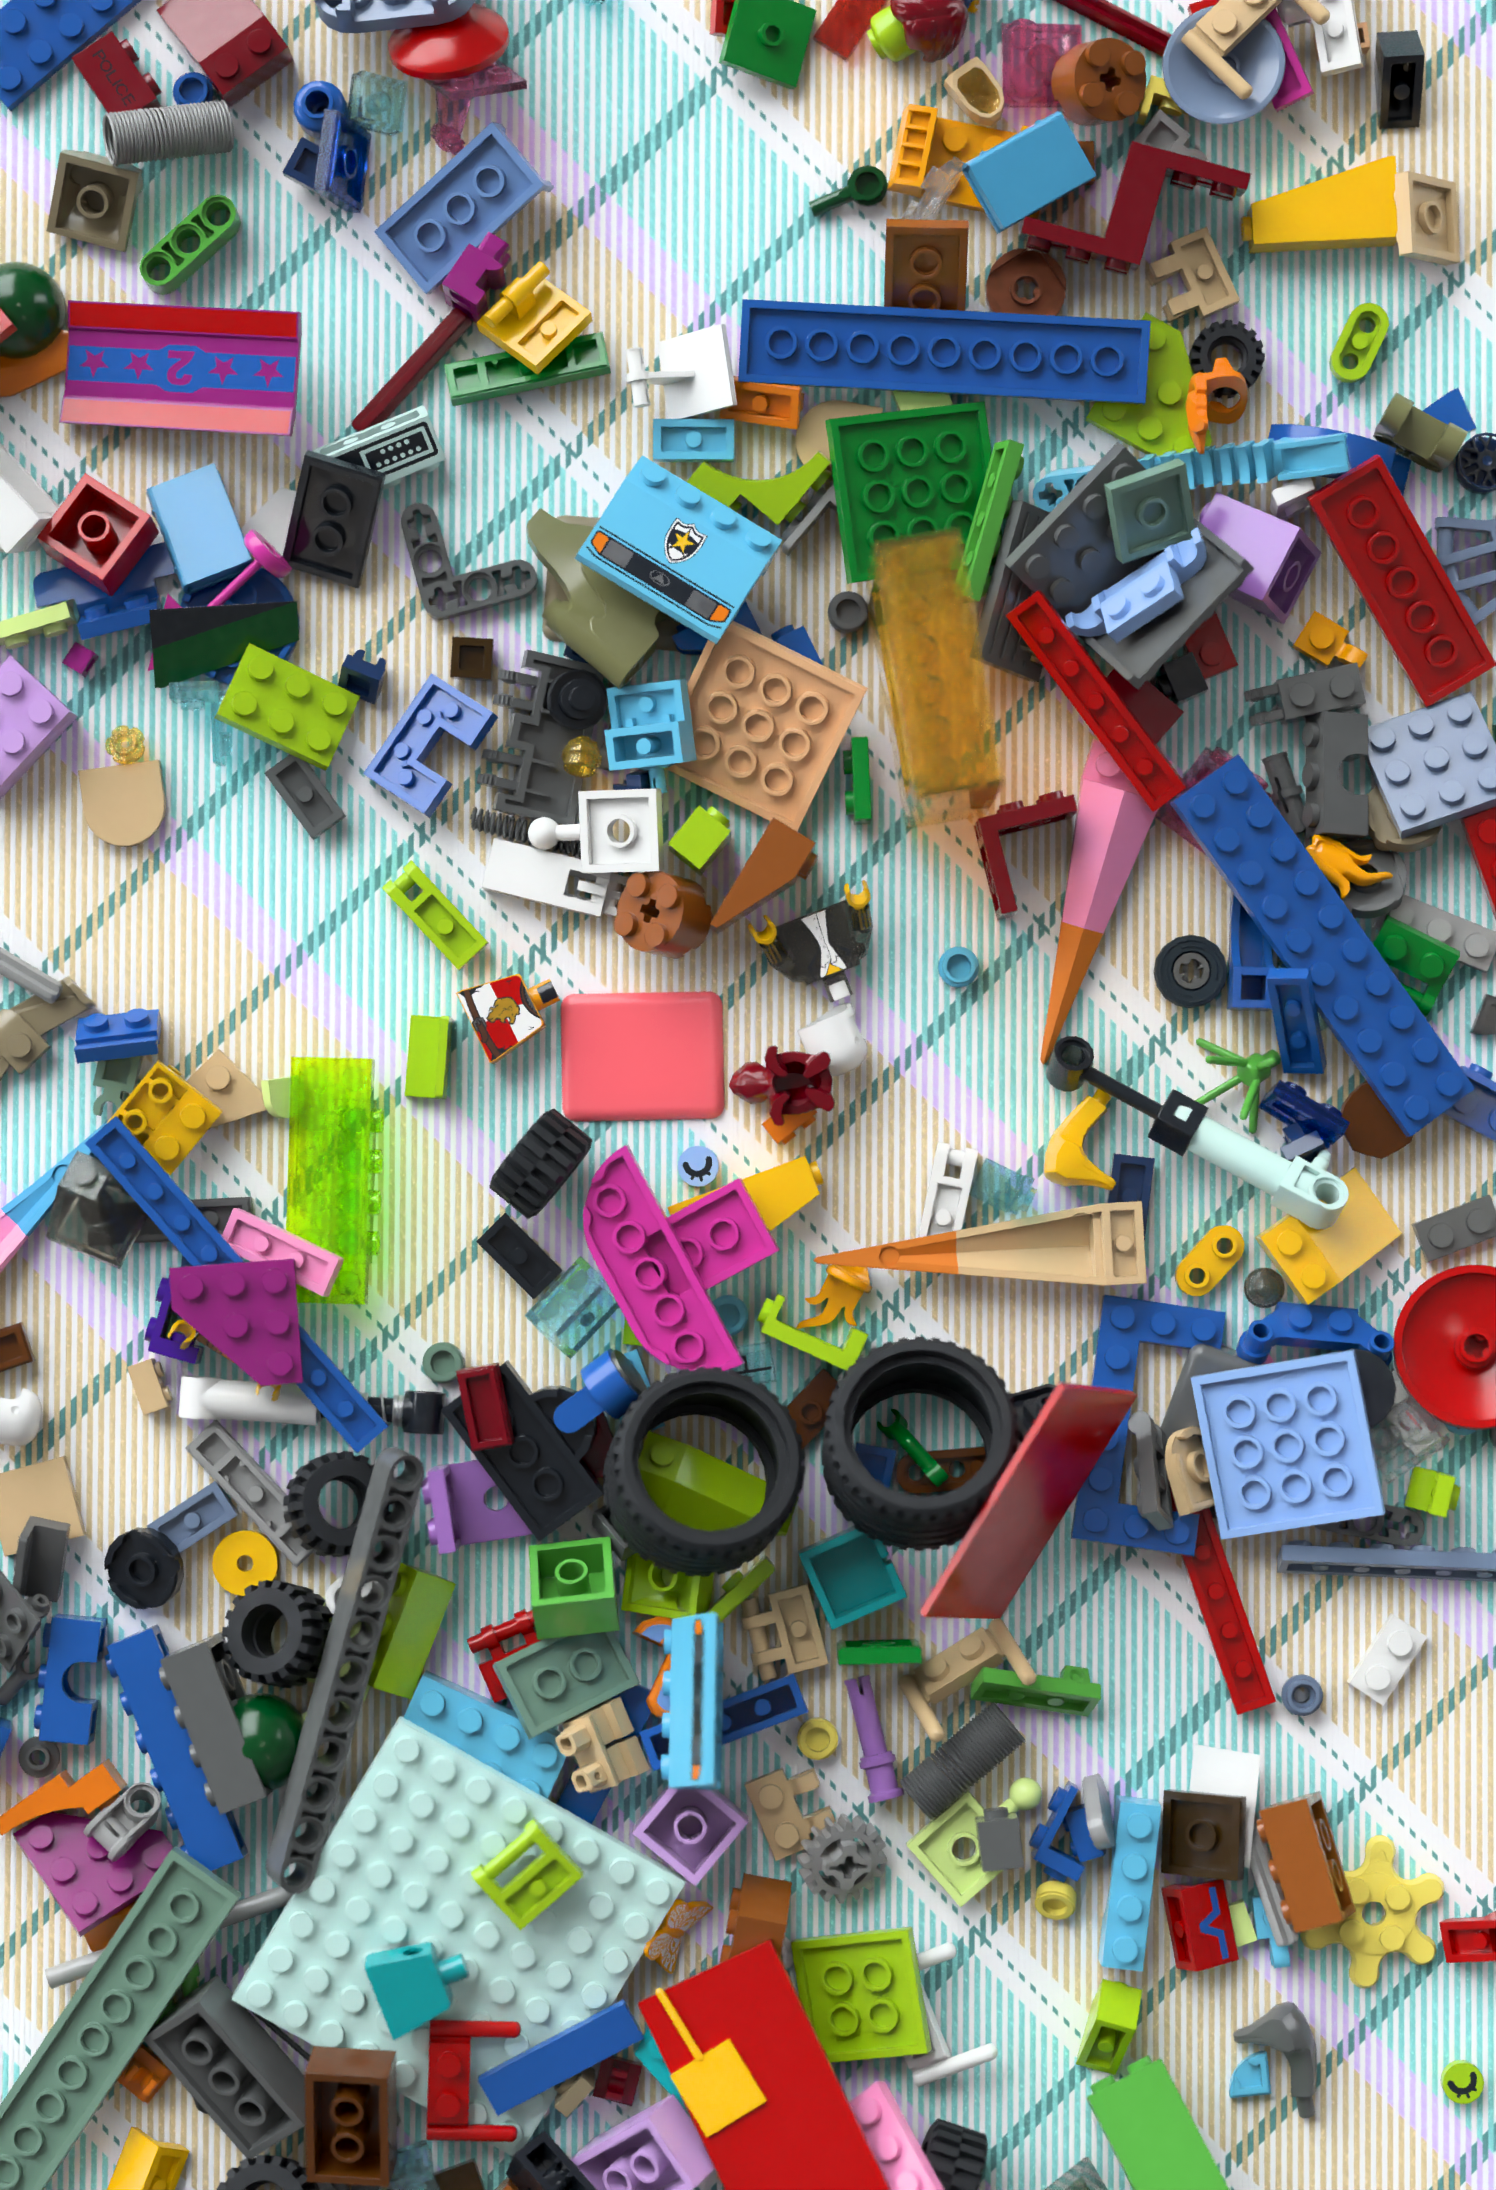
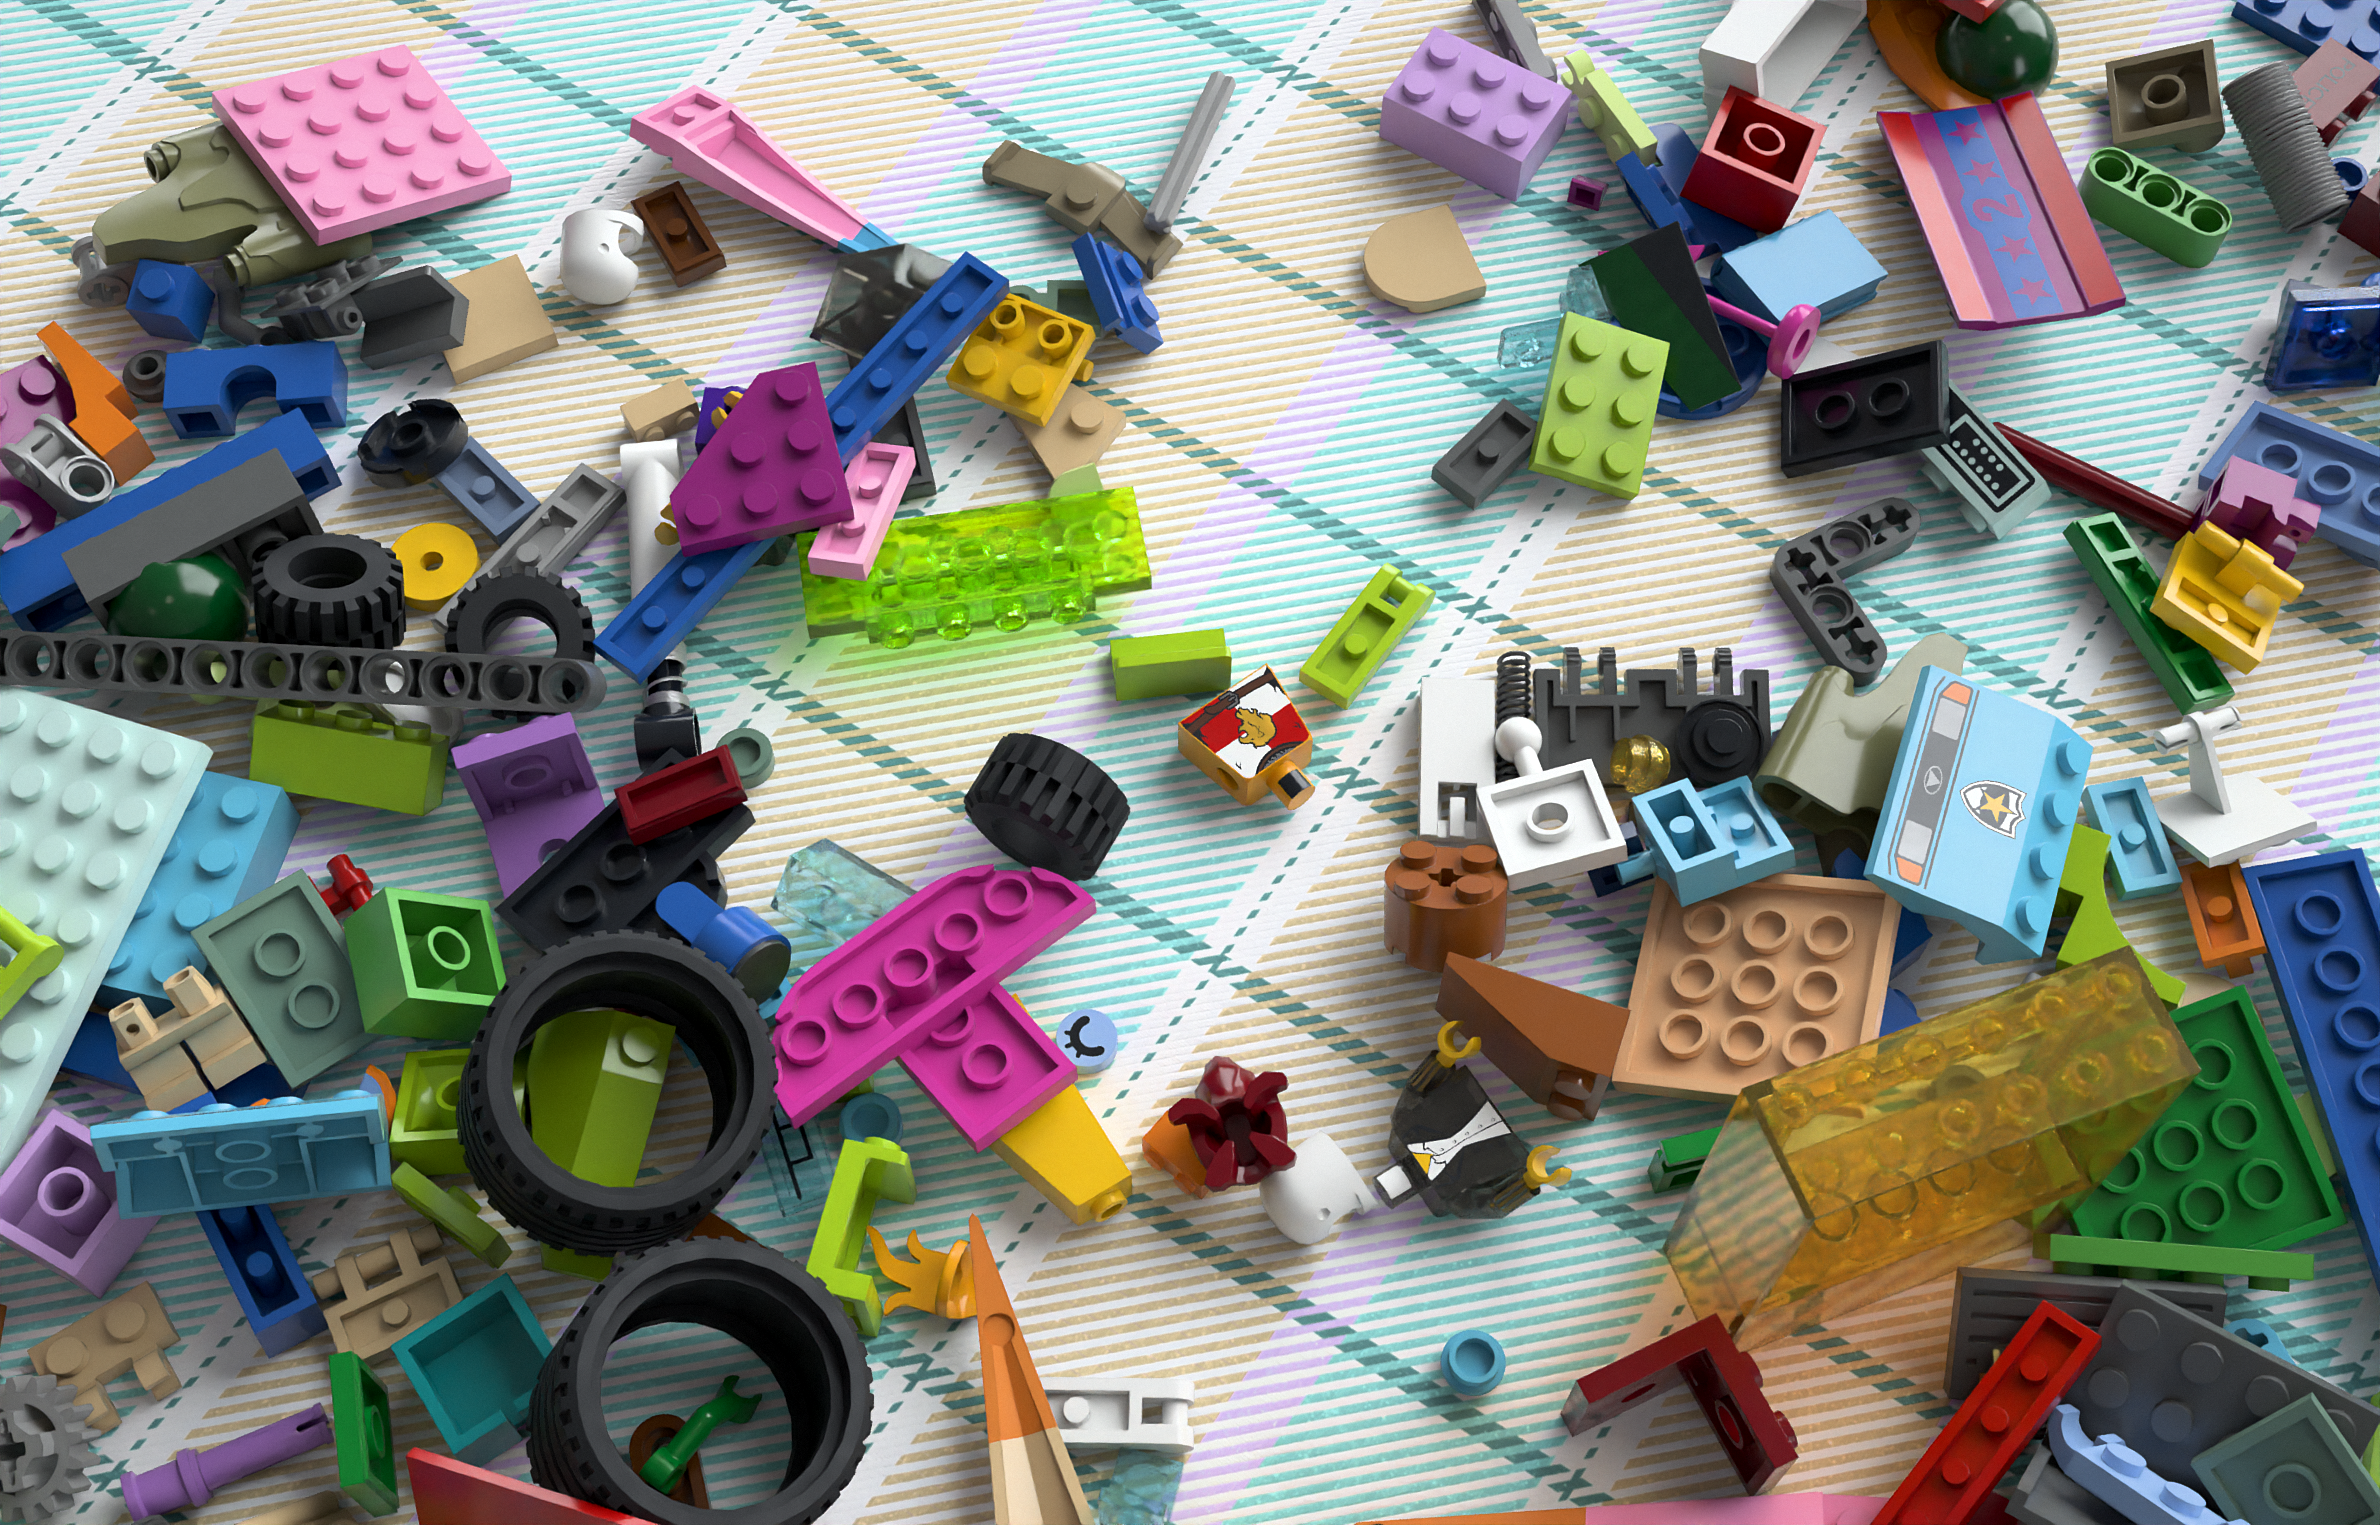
camera: 75 degrees right, 25 degrees down
(132, 752) = (1495, 250): clear yellow plate -> none
(362, 677) = (1665, 490): tile -> none
(401, 757) = (1647, 584): plate -> none
(472, 658) = (1731, 616): dark brown plate -> none
(519, 1255) = (911, 822): black plate -> none
(642, 1056) = (1232, 943): coral piece -> none
(701, 838) = (1568, 937): lime brick -> none
(817, 1738) = (227, 1381): light yellow tile -> none
(877, 1461) = (666, 1379): blue plate -> none

